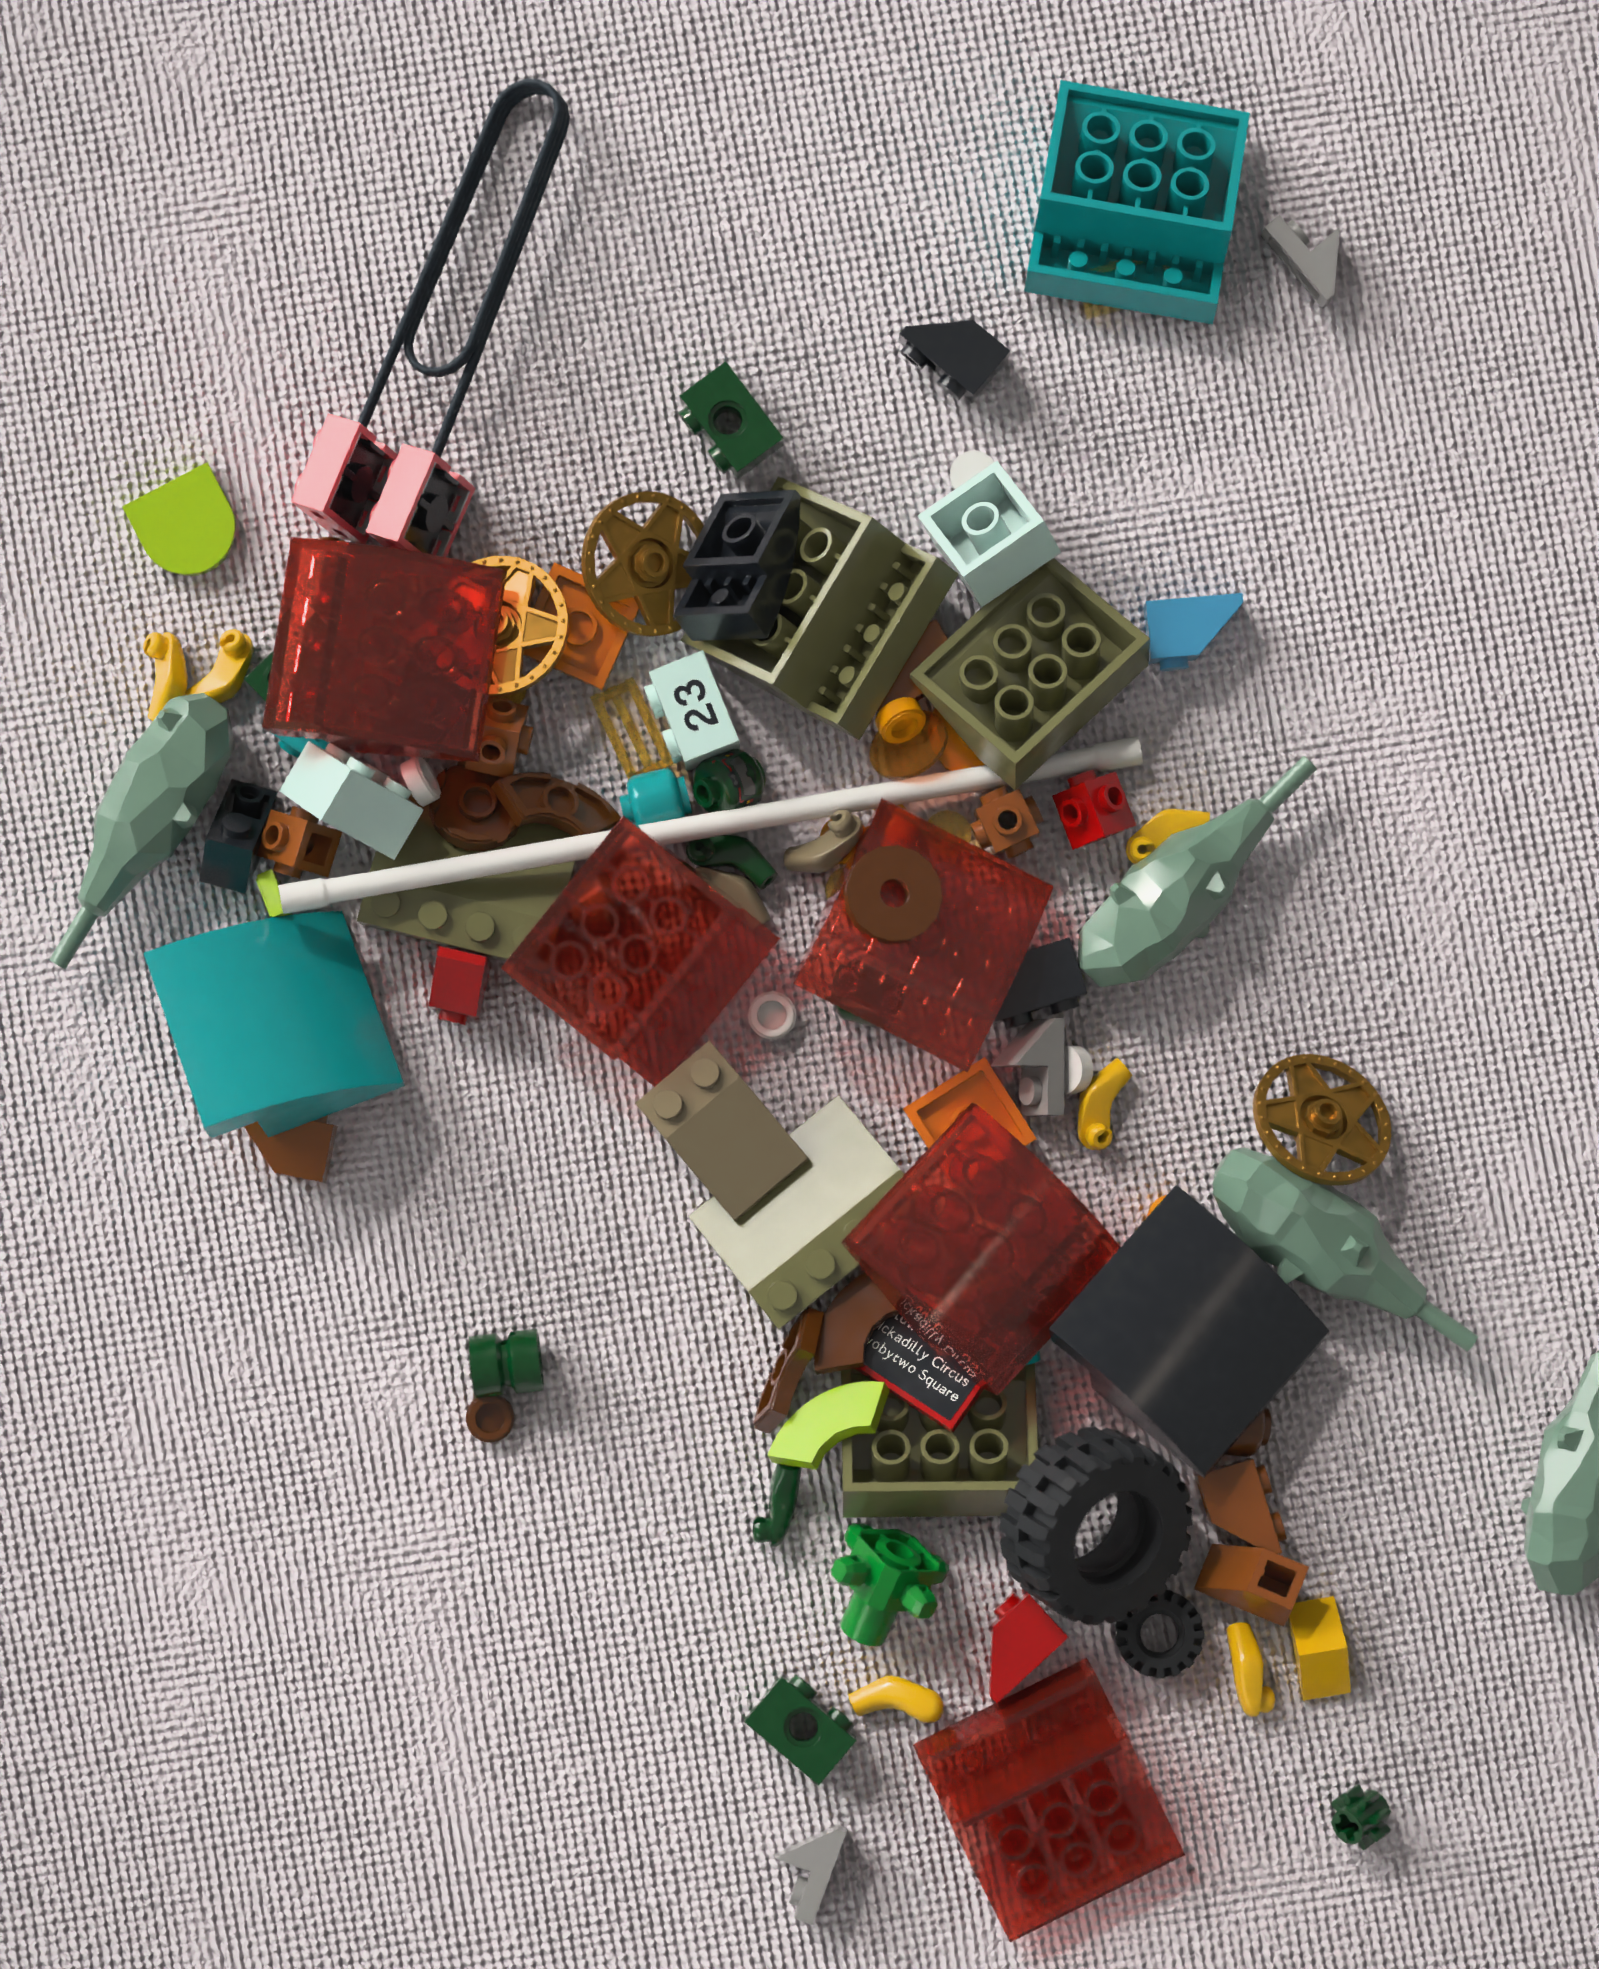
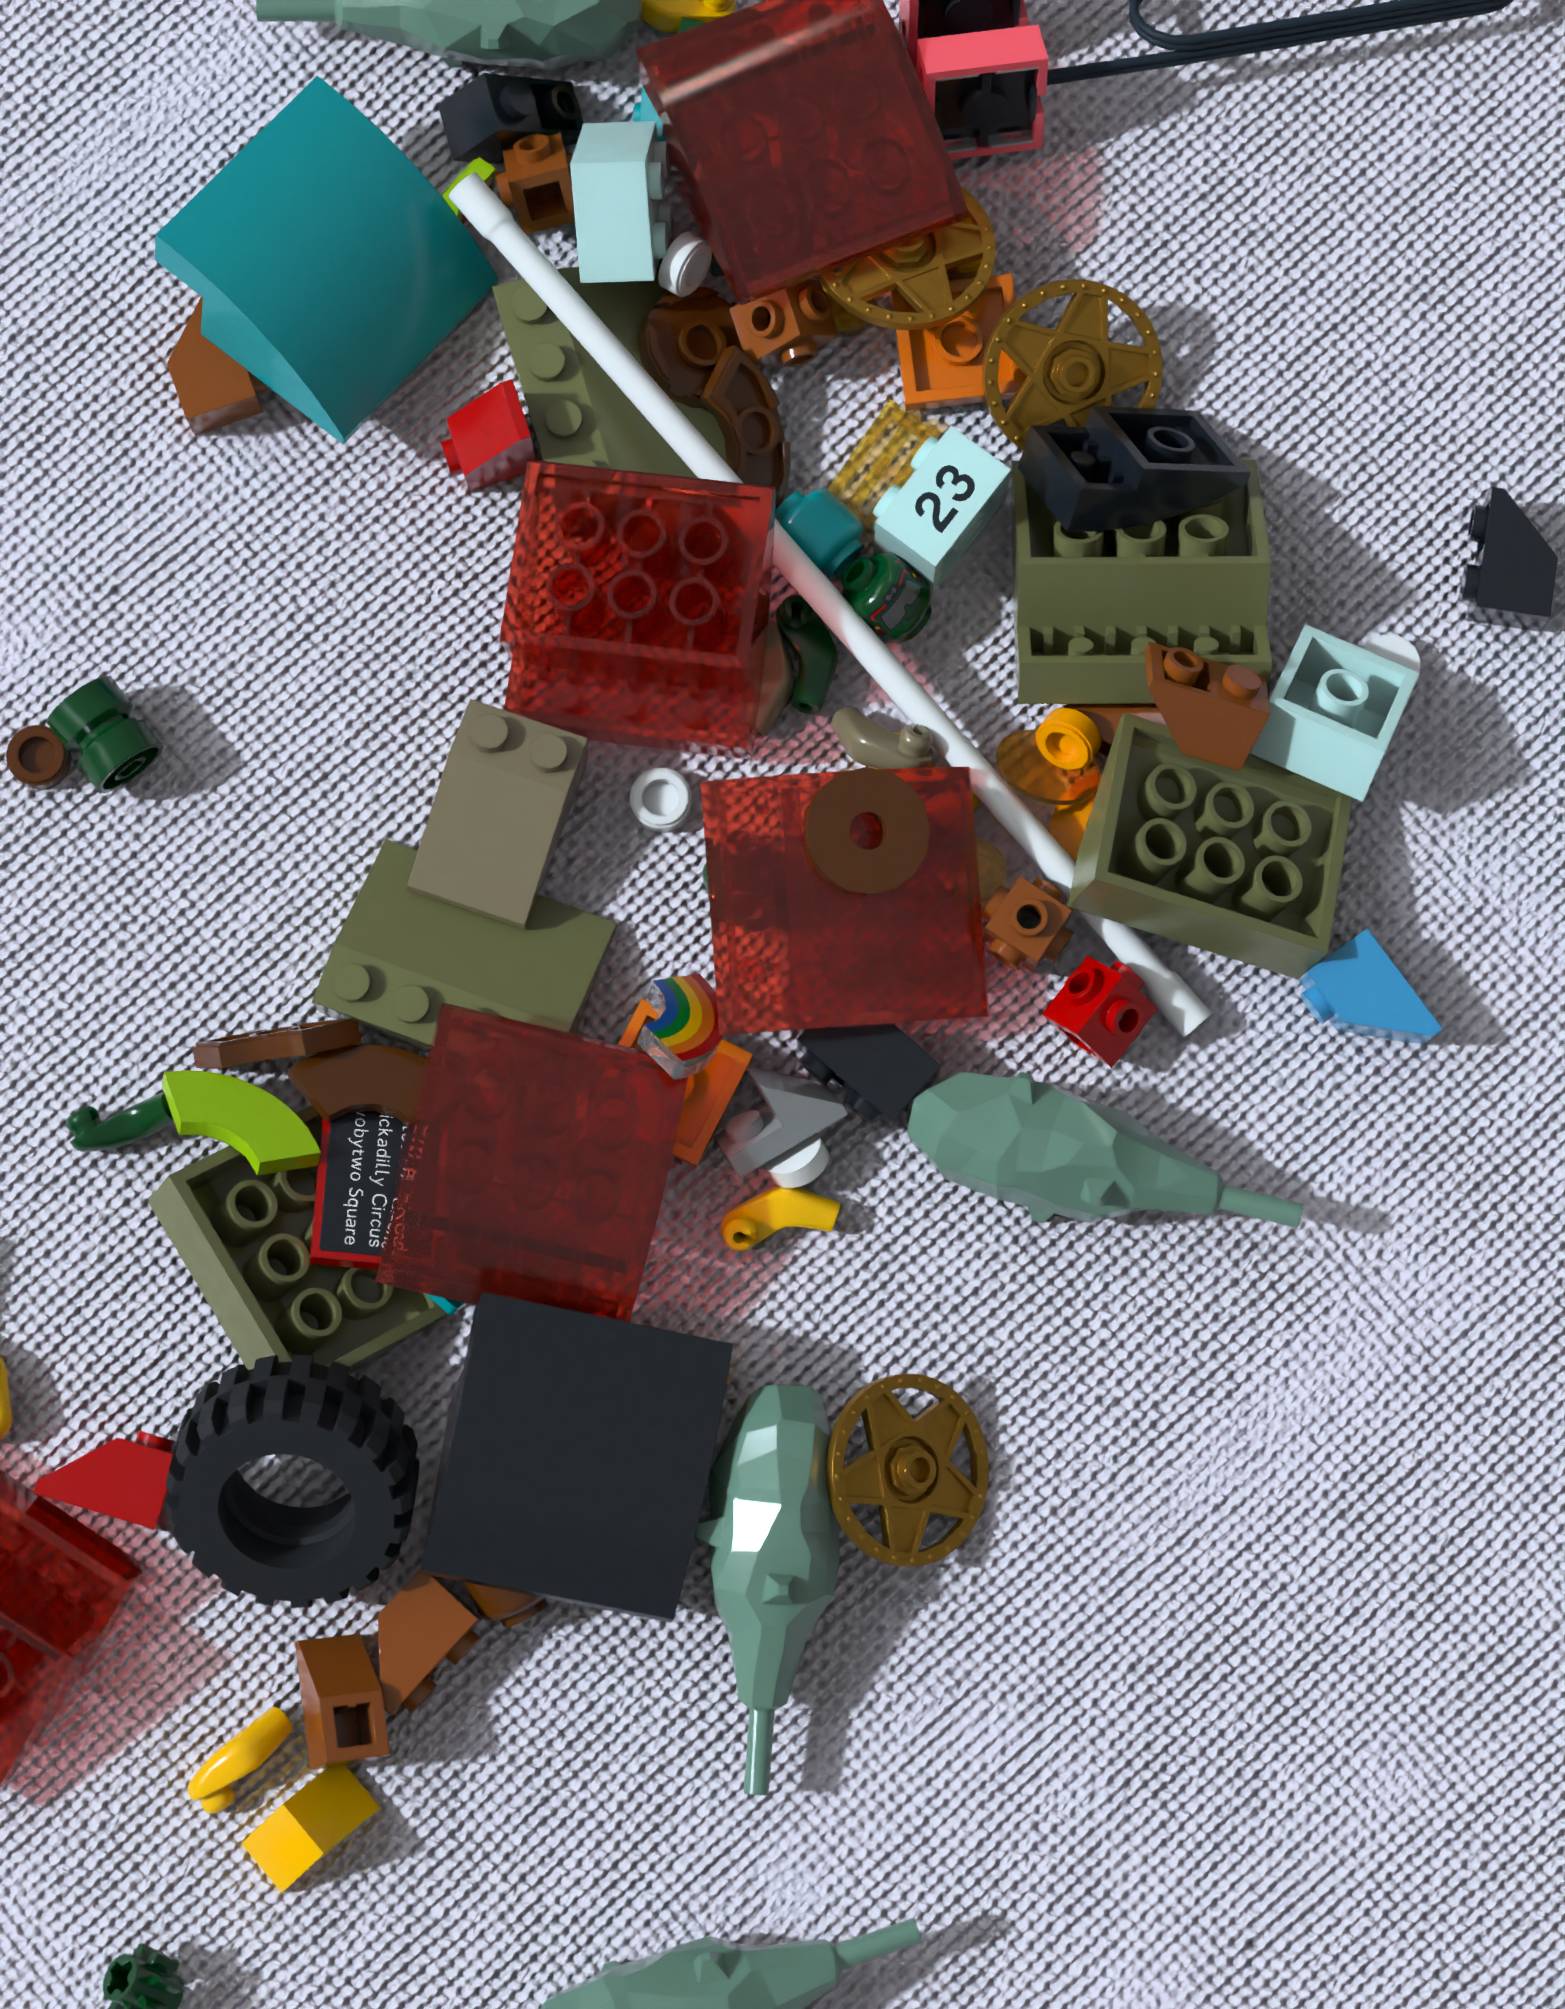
camera: 60 degrees right, 5 degrees down
(721, 393) = (1303, 340): dark green brick -> none
(888, 1576) = (107, 1287): green piece -> none
(940, 616) = (1207, 705): none -> dark orange slope
(944, 1088) = (686, 1027): none -> tile
(1160, 828) = (1125, 1097): yellow arm -> none
(1173, 1660) = (201, 1667): black tyre -> none

